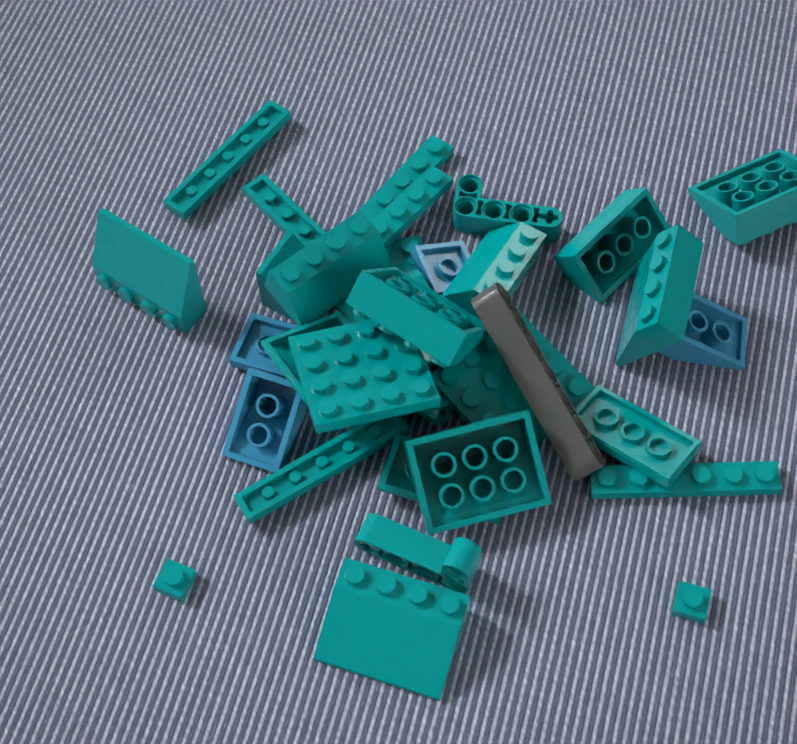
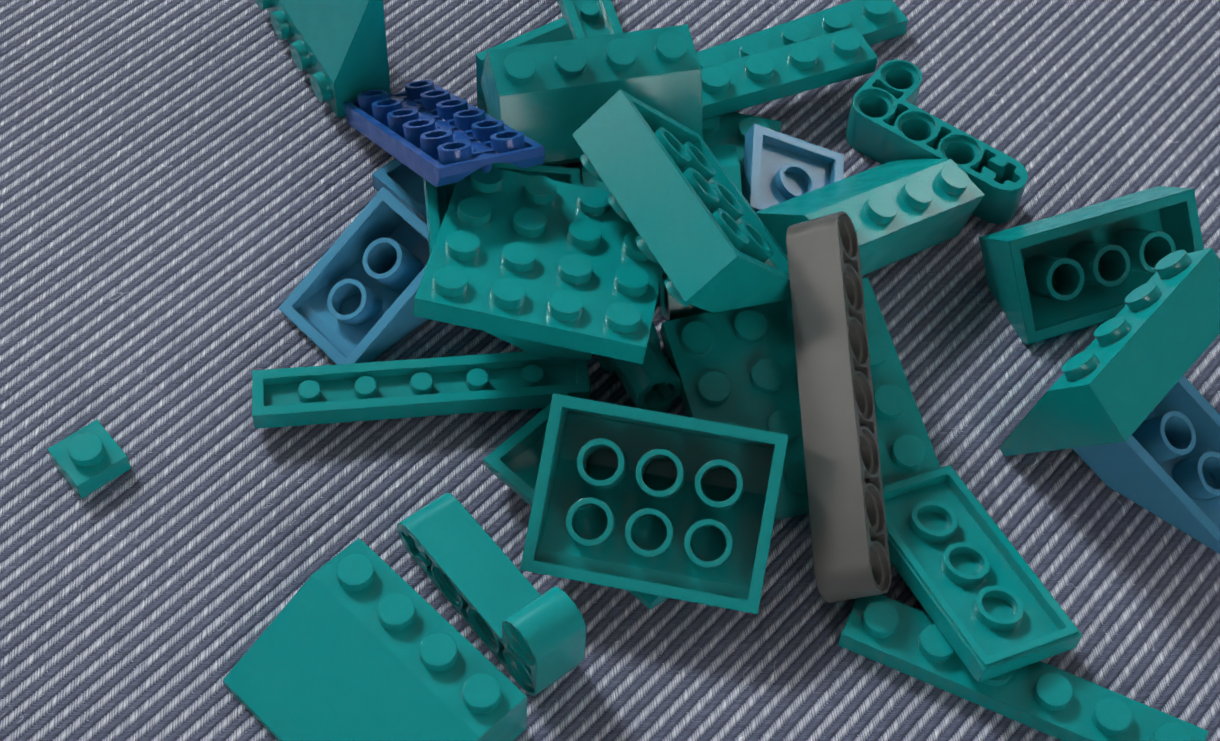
camera: 20 degrees right, 5 degrees down
(260, 325) = (439, 132): none -> blue plate

